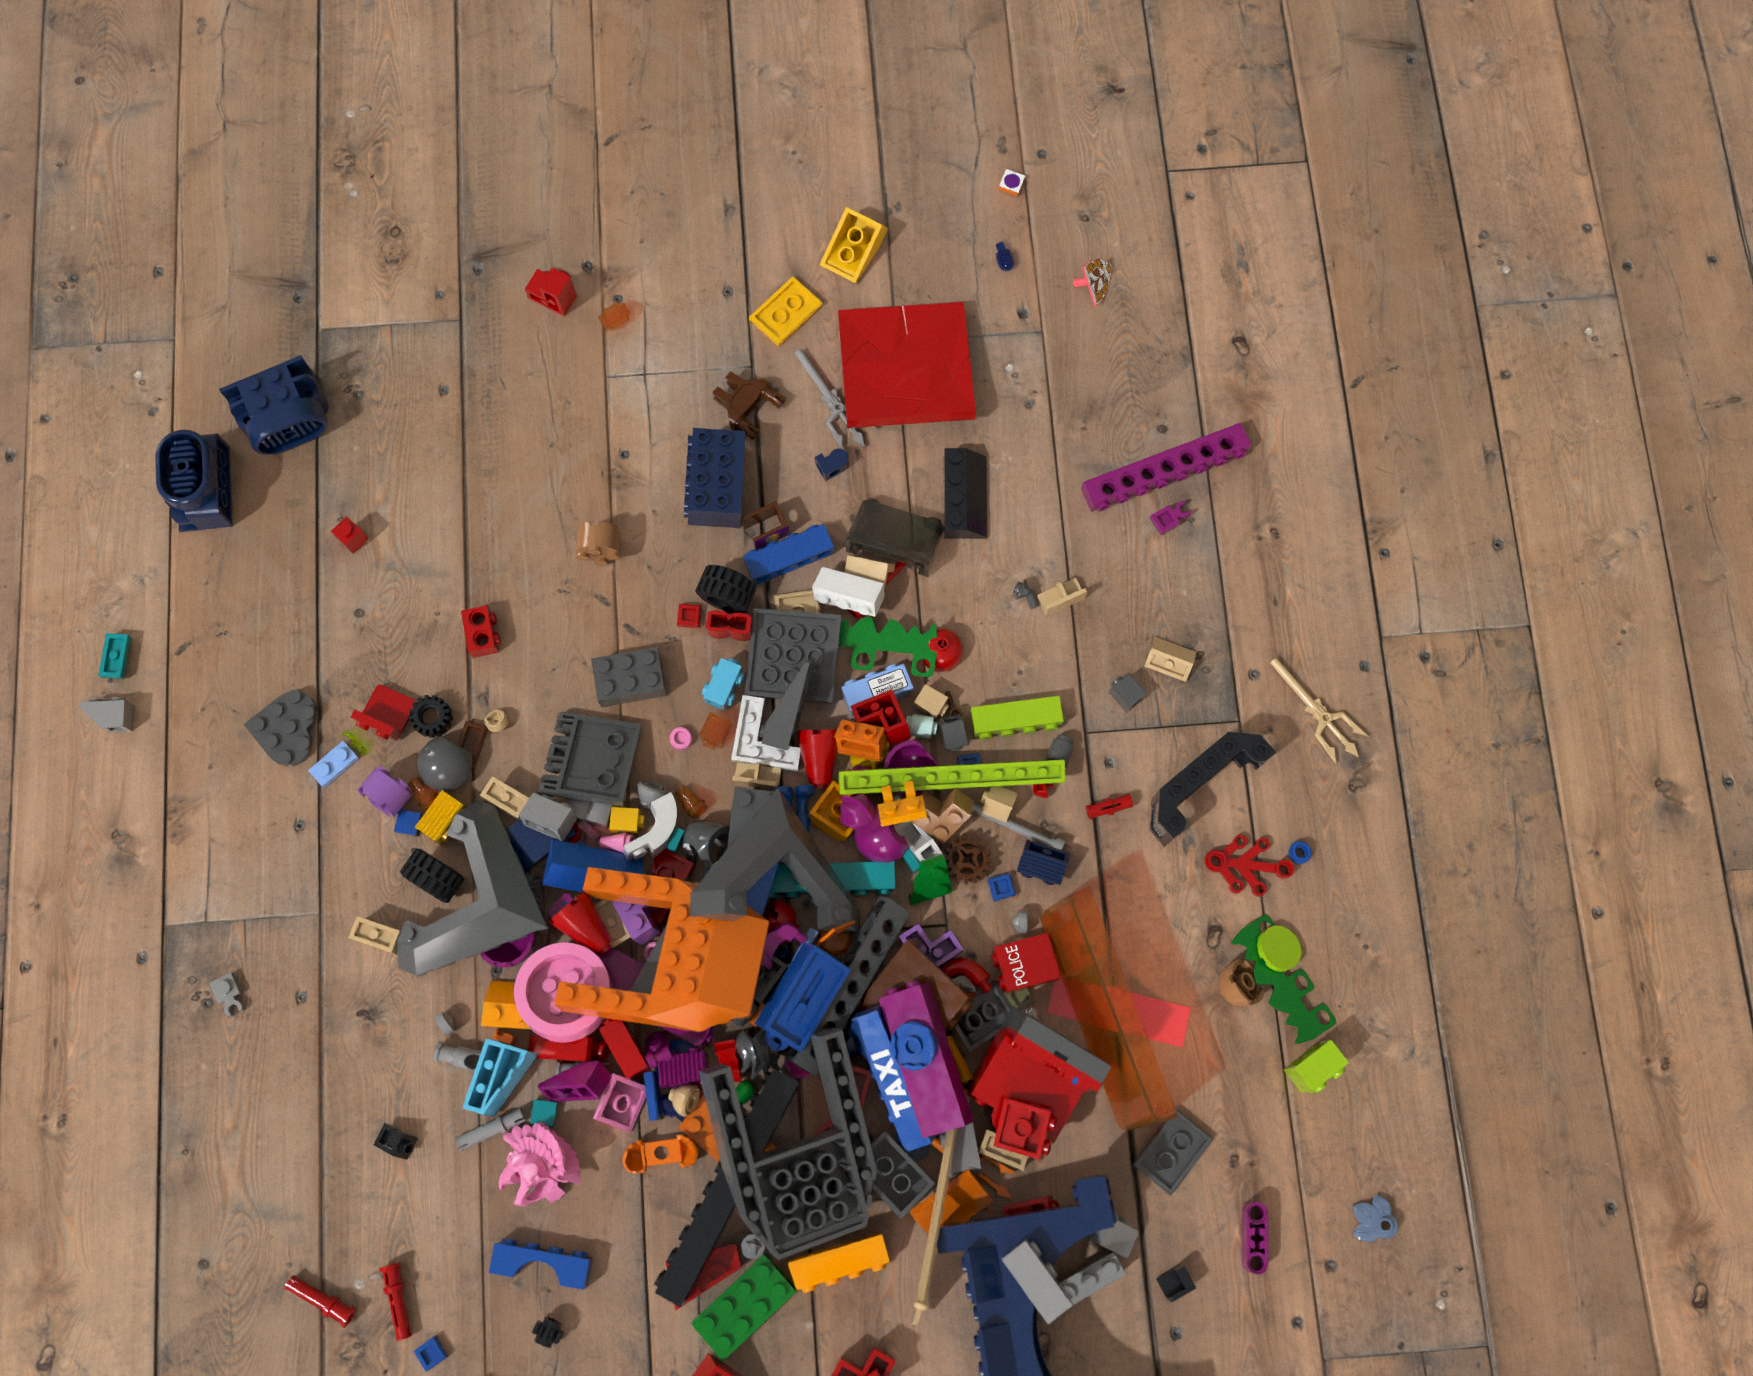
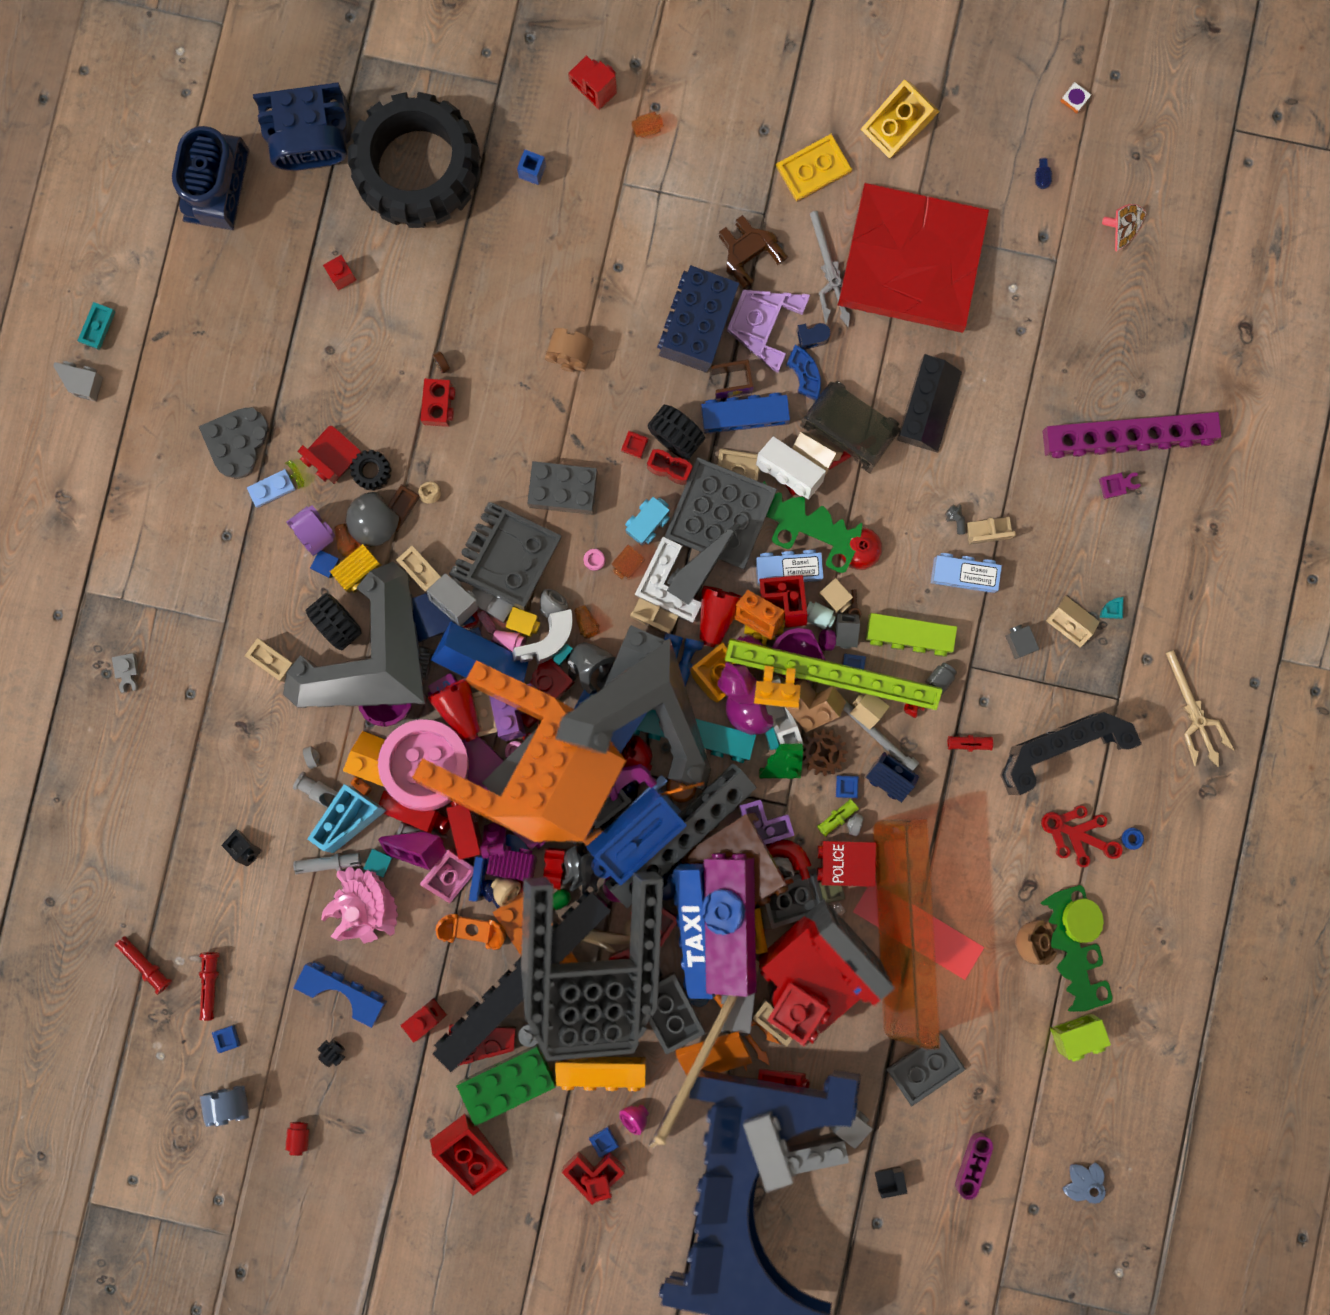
camera: 20 degrees right, 10 degrees up
(382, 368) = (406, 116): none -> black tyre
(473, 591) = (441, 362): none -> reddish brown tile
(513, 384) = (531, 167): none -> blue brick
(636, 1265) = (423, 1020): none -> red torso
(772, 463) = (755, 320): none -> lavender wing
(801, 1119) = (604, 938): none -> tan plant
(836, 499) = (806, 371): none -> blue tile
(864, 1337) = (603, 1142): none -> blue tile
(888, 1300) = (634, 1118): none -> dark pink brick
(936, 747) = (827, 640): none -> magenta tile
(1002, 920) = (838, 817): none -> lime pin
(1051, 643) = (966, 573): none -> light blue brick
(1205, 636) = (1113, 609): none -> teal tile

